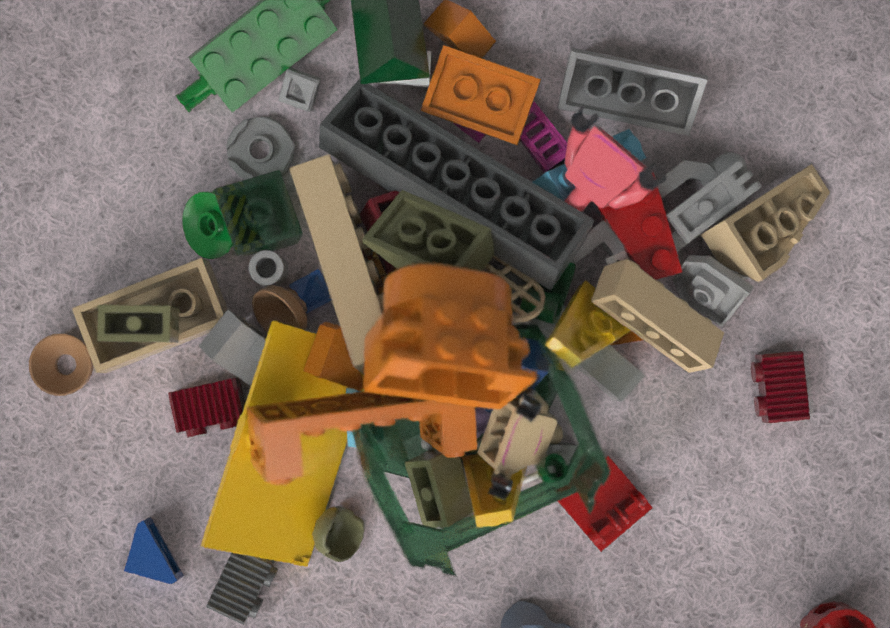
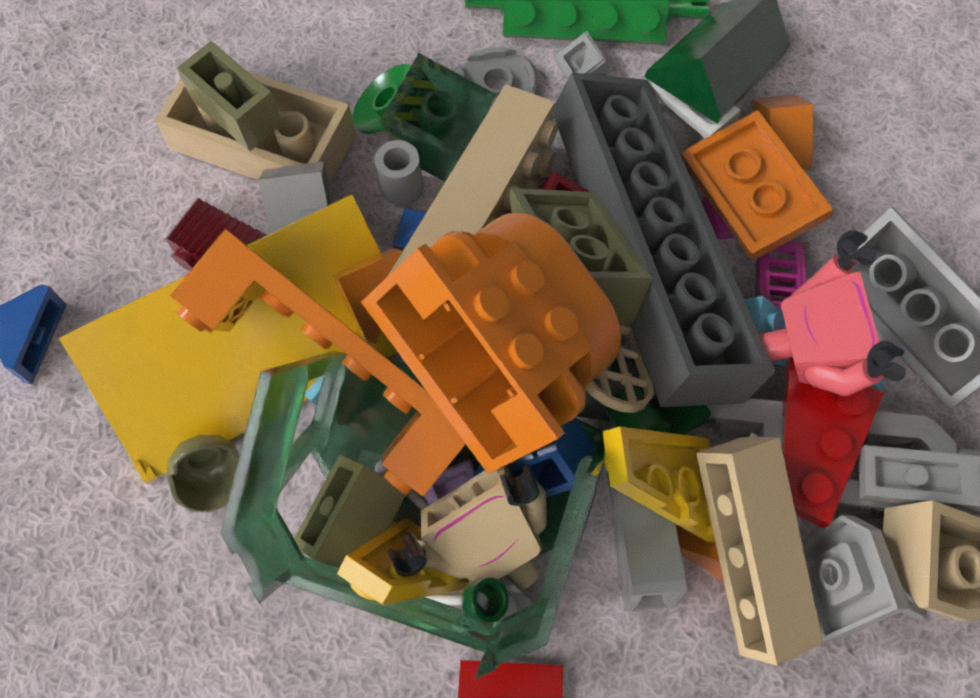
camera: 40 degrees right, 20 degrees down
(44, 364) = (129, 95): medium nougat piece -> none
(240, 586) = (63, 438): dark grey brick -> none
(280, 306) = (380, 211): medium nougat piece -> none

